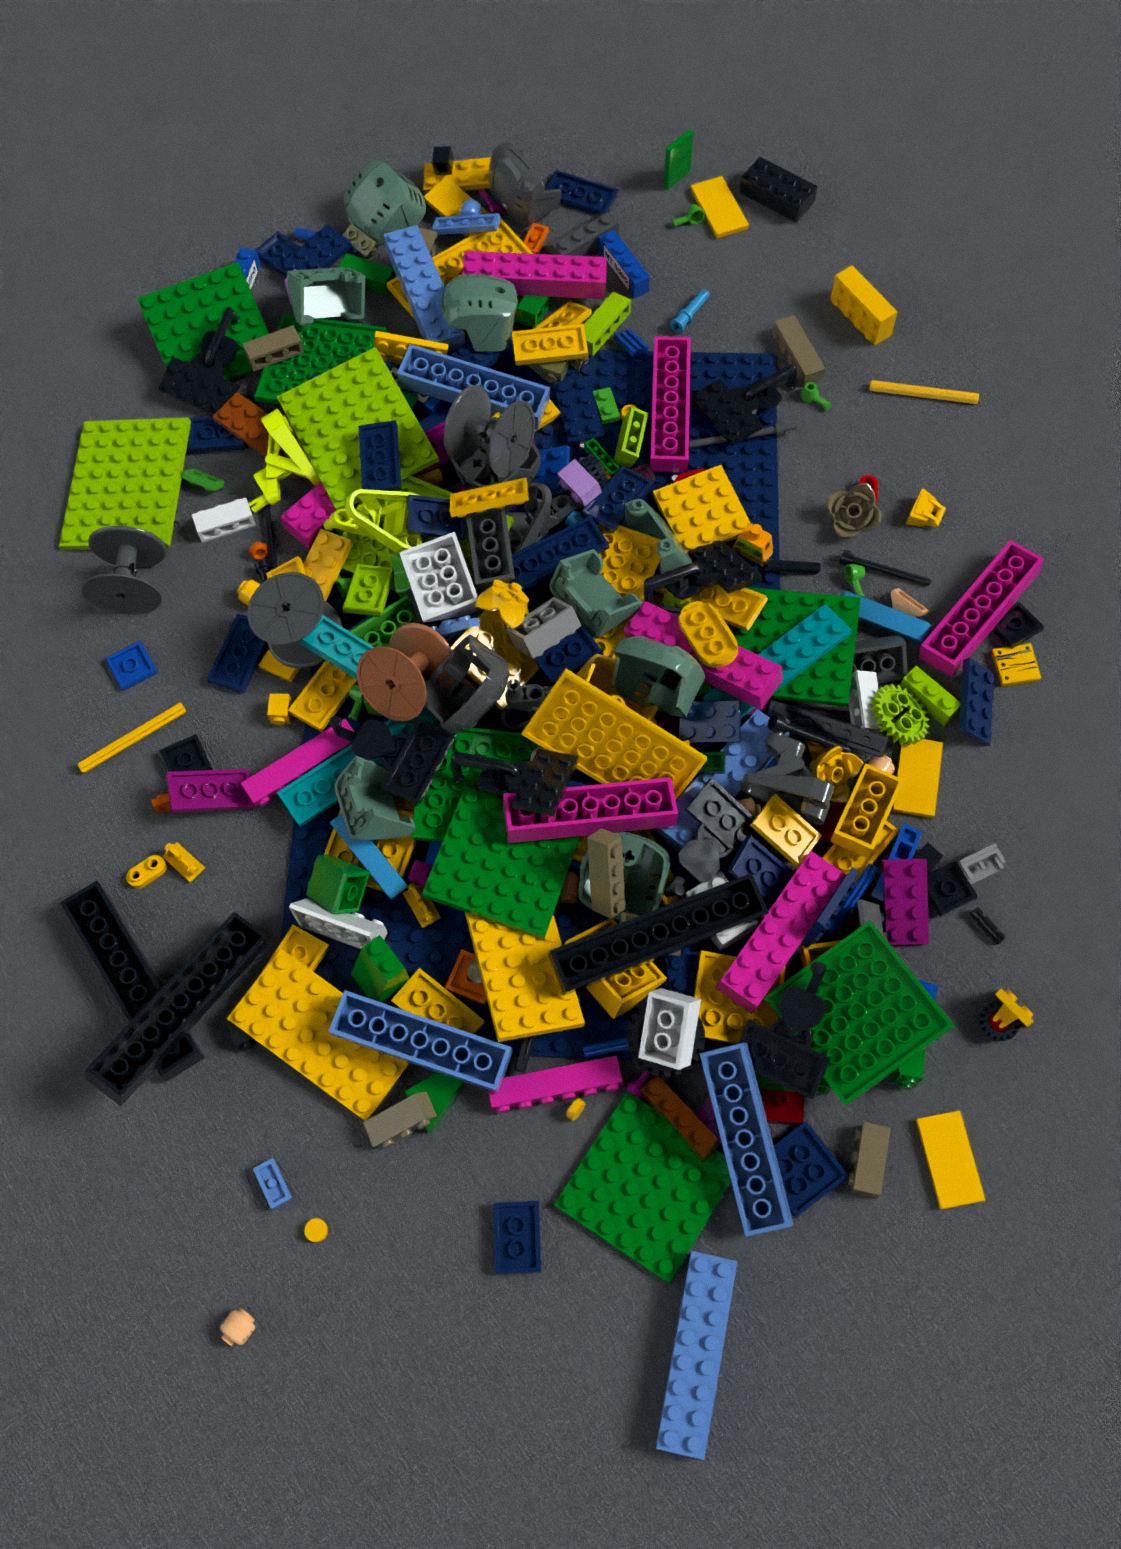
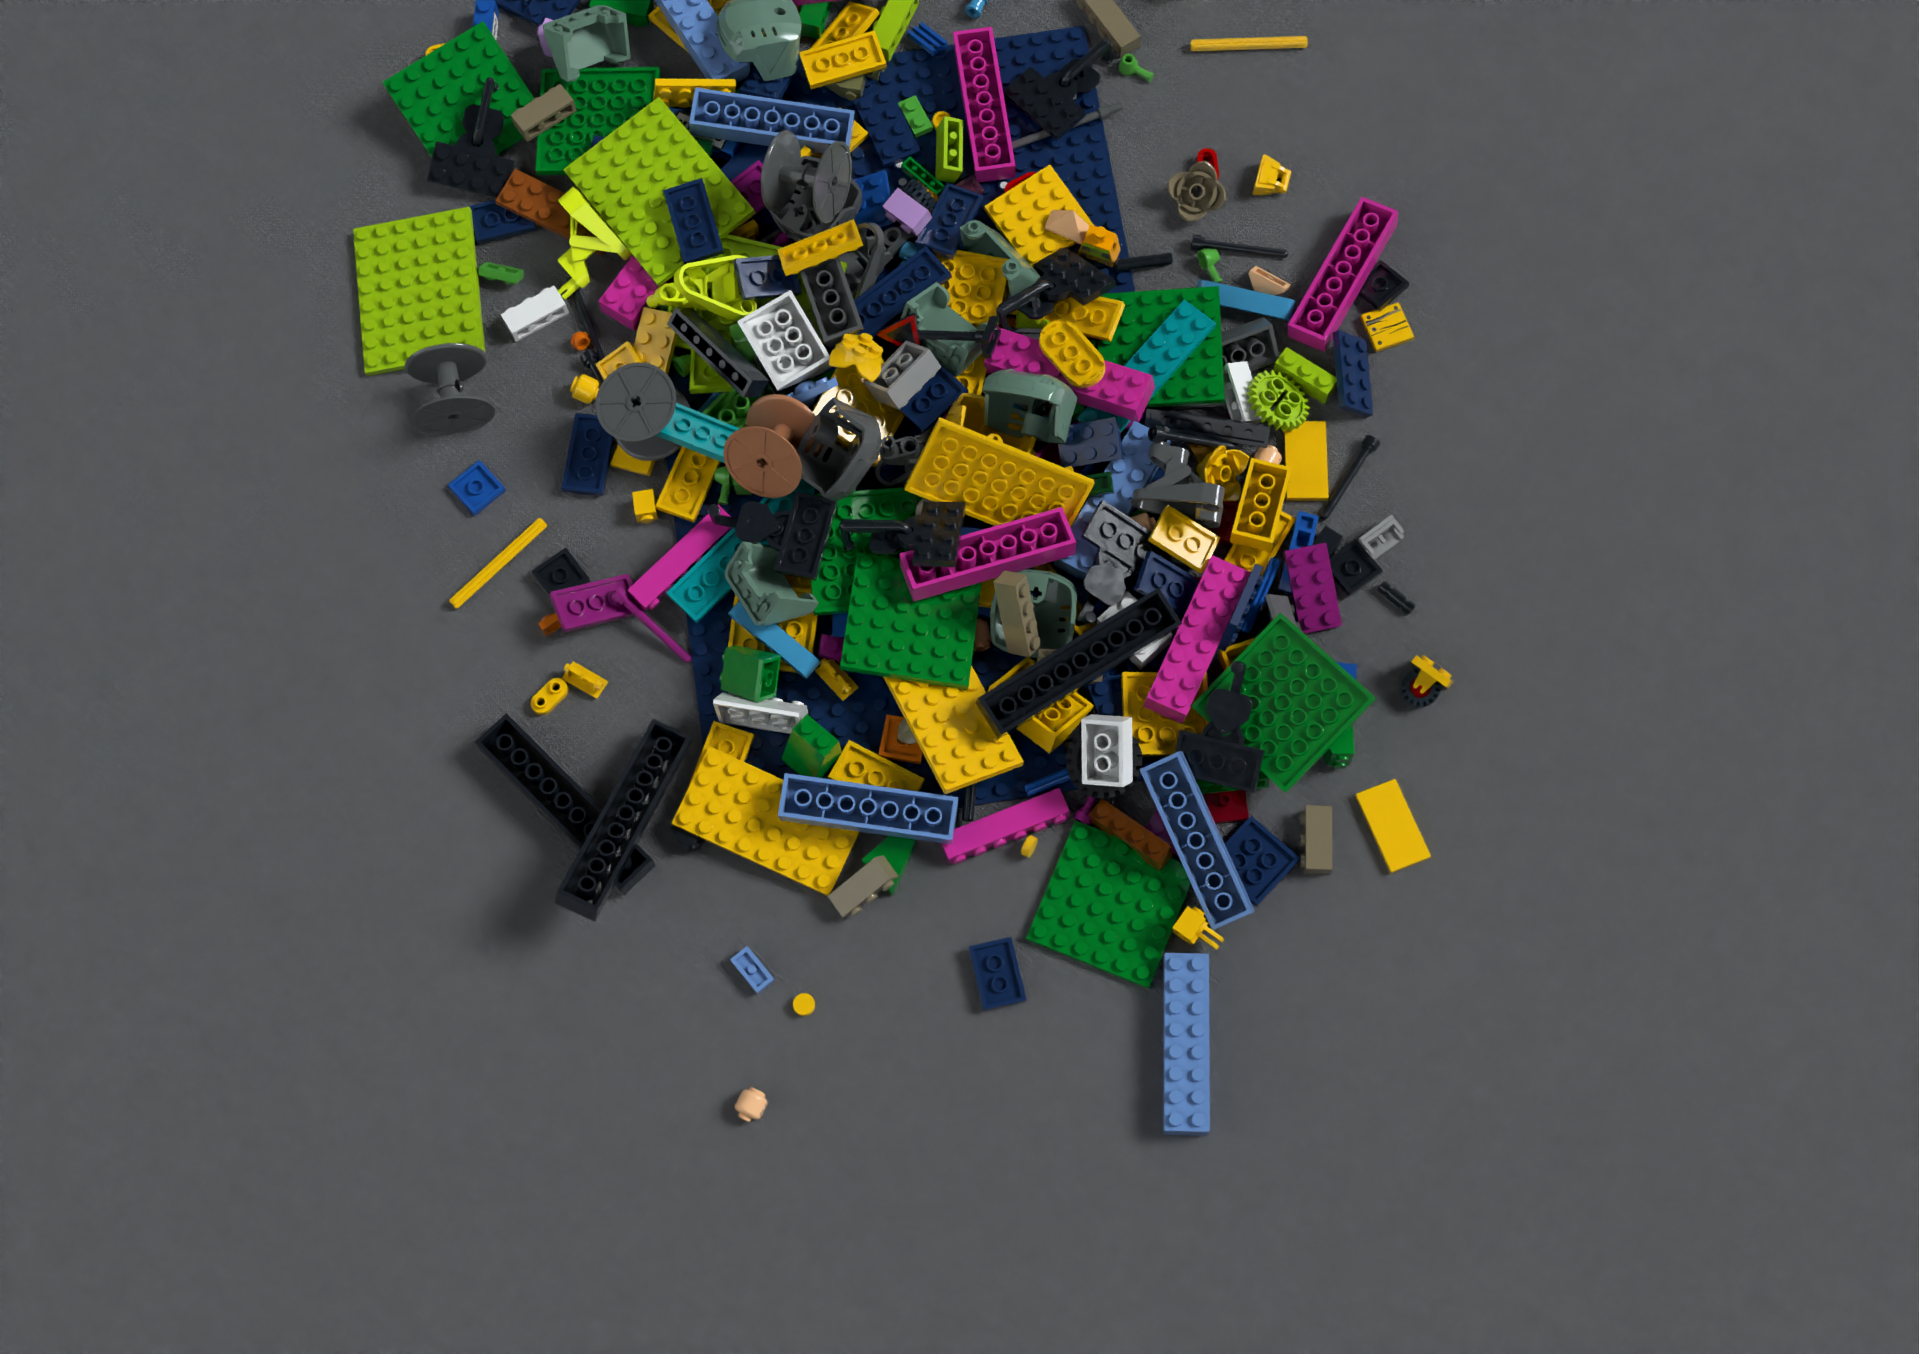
camera: 10 degrees left, 5 degrees up
(234, 789) = (622, 598): none -> magenta piece
(375, 578) = (717, 352): none -> black brick
(556, 587) = (907, 330): none -> black piece
(725, 1227) = (1191, 928): none -> yellow brick
(727, 520) = (1067, 224): none -> light nougat slope
(982, 772) = (1369, 445): none -> black piece

